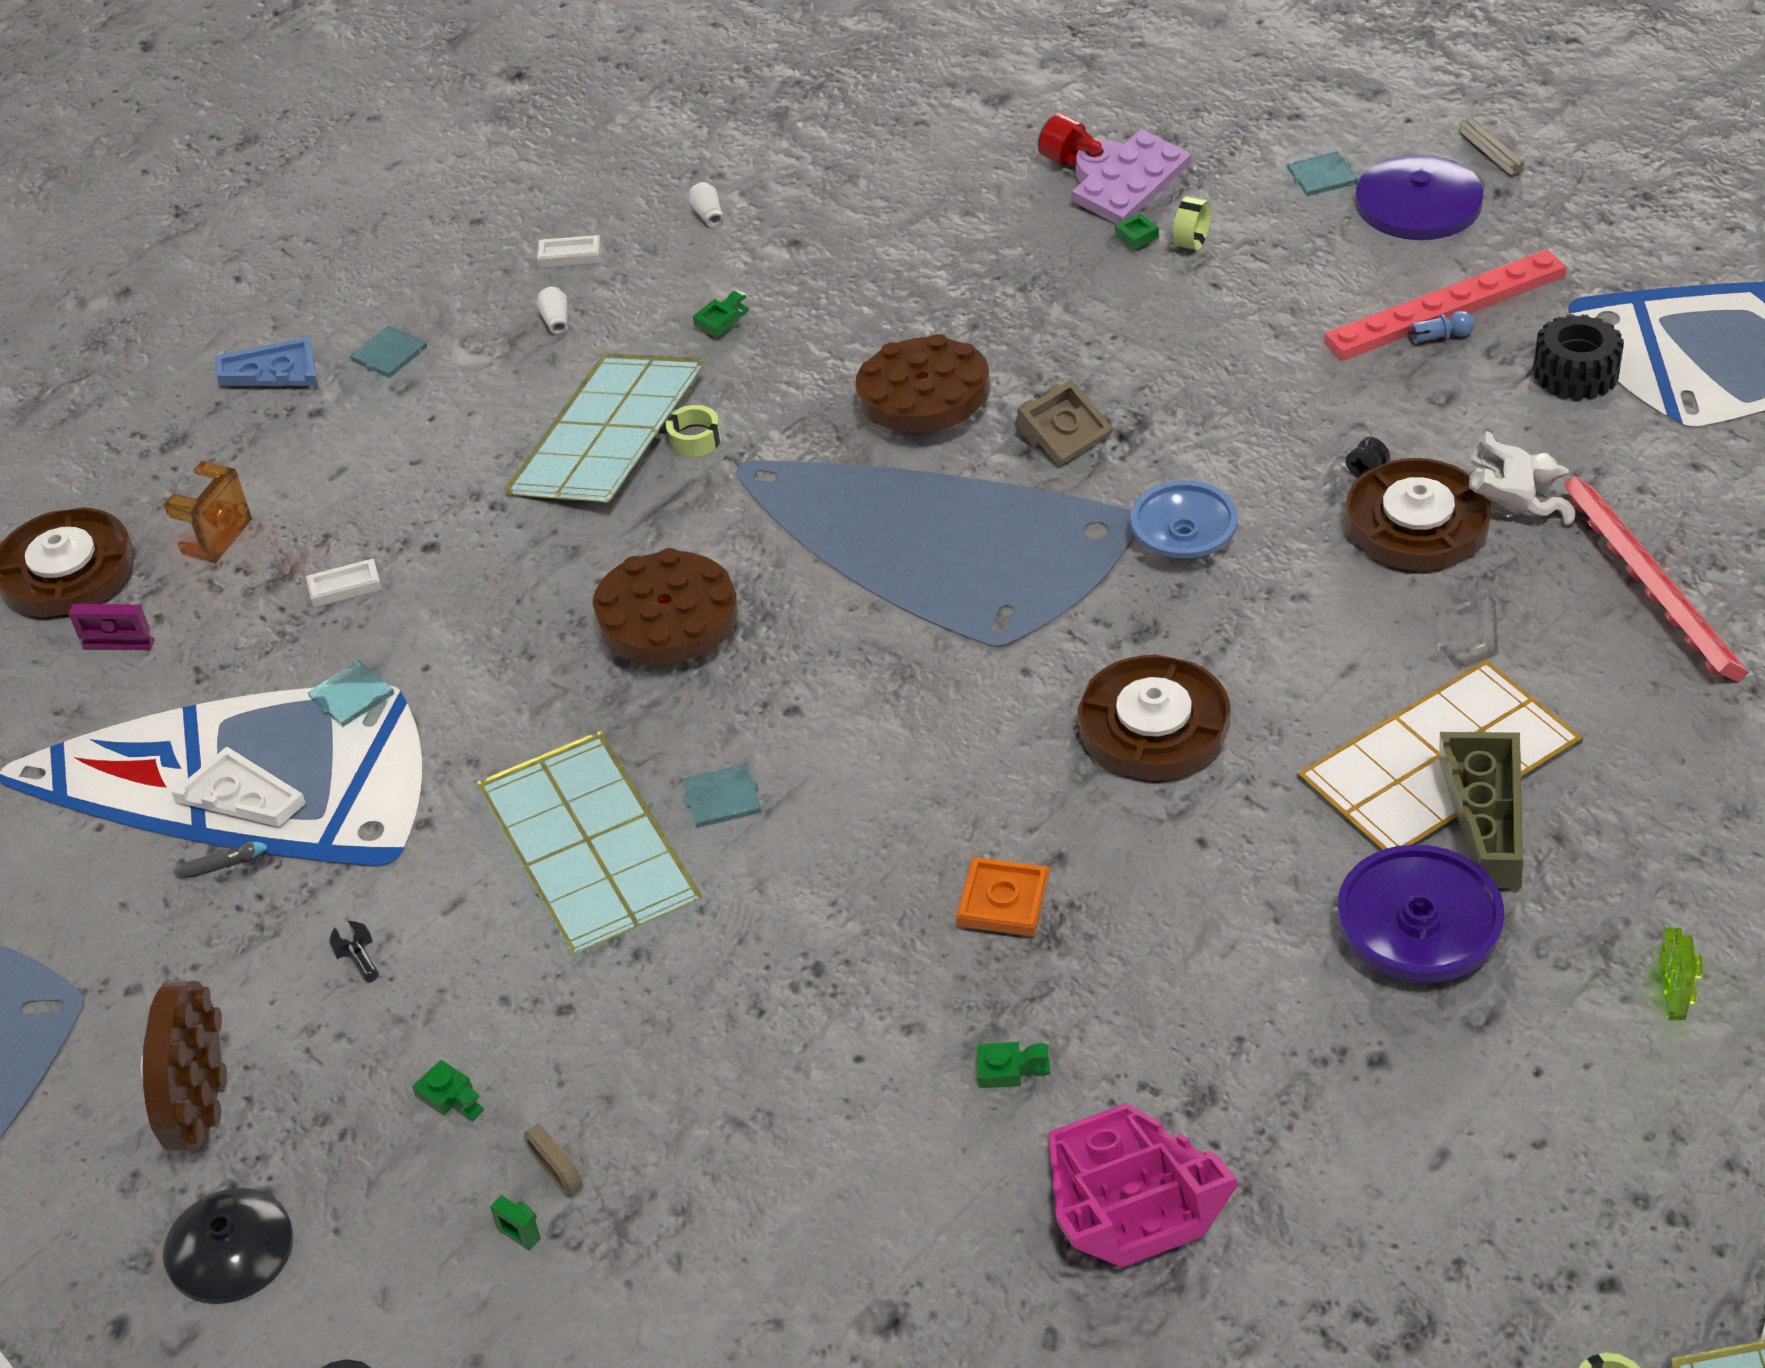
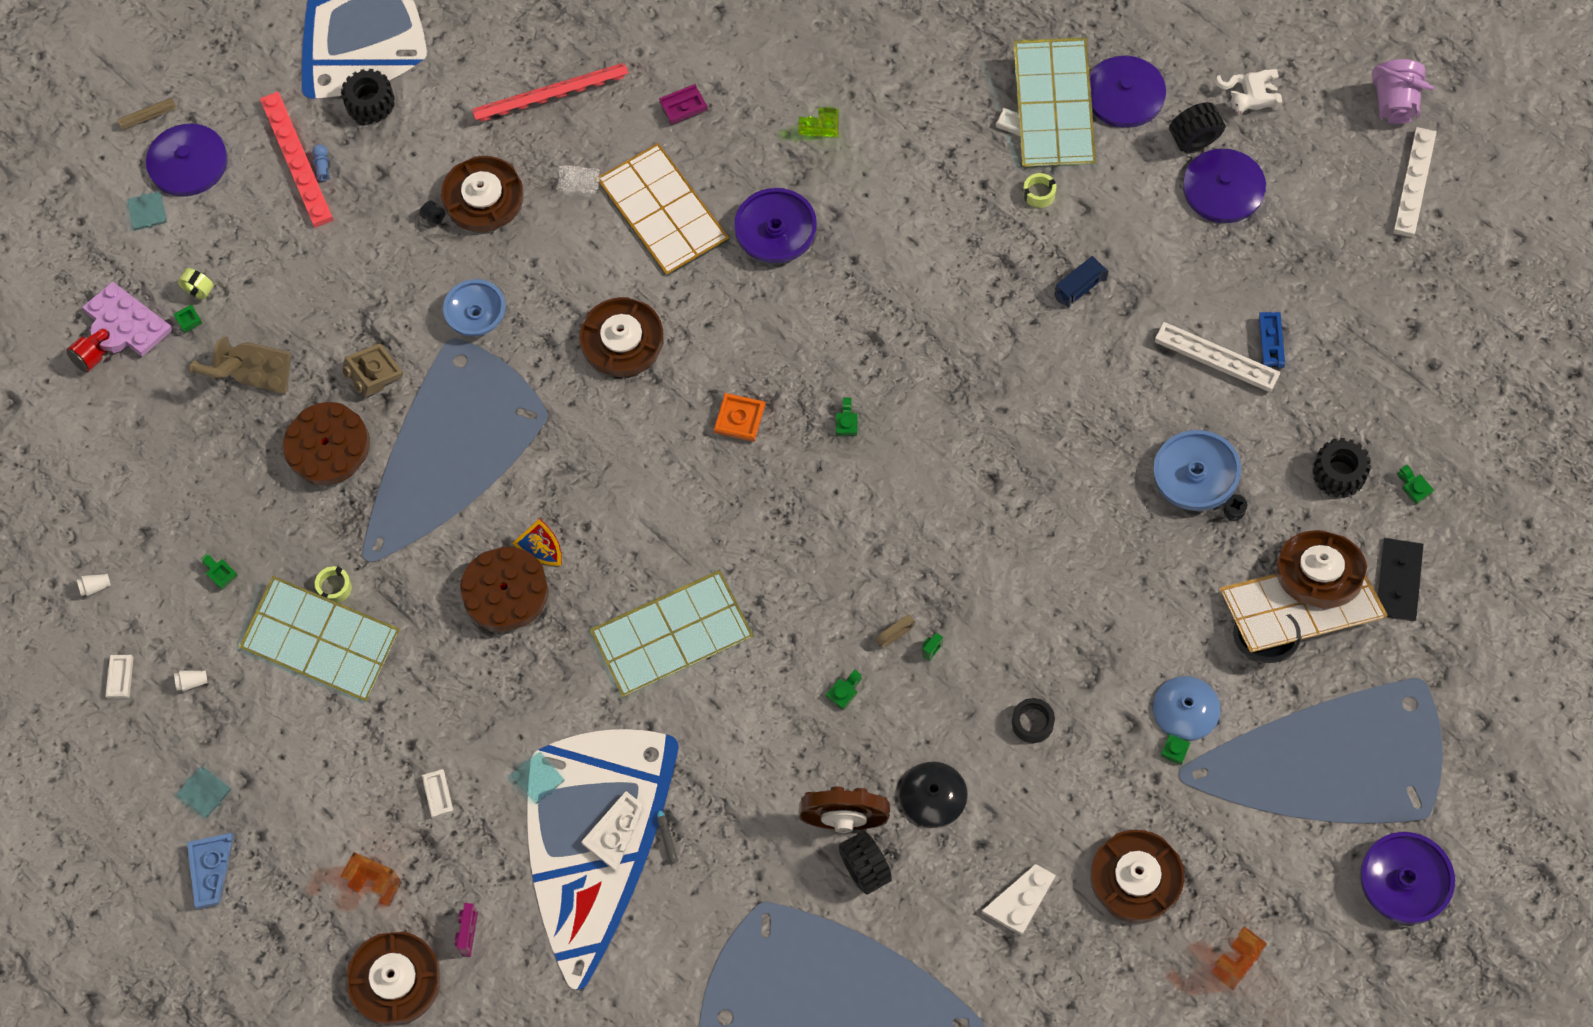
camera: 90 degrees left, 20 degrees up
(92, 1116) = (865, 862): none -> black tyre
(355, 949) = (742, 750): black bar -> none
(722, 795) = (646, 561): clear light blue piece -> none
(755, 647) = (541, 543): none -> shield
(1068, 274) = (249, 365): none -> dark tan plate
(1132, 1186) = (924, 365): dark pink wedge -> none
(1487, 798) = (709, 185): olive wedge -> none
(1517, 478) = (470, 139): white animal -> none
(1676, 762) = (683, 104): none -> magenta plate

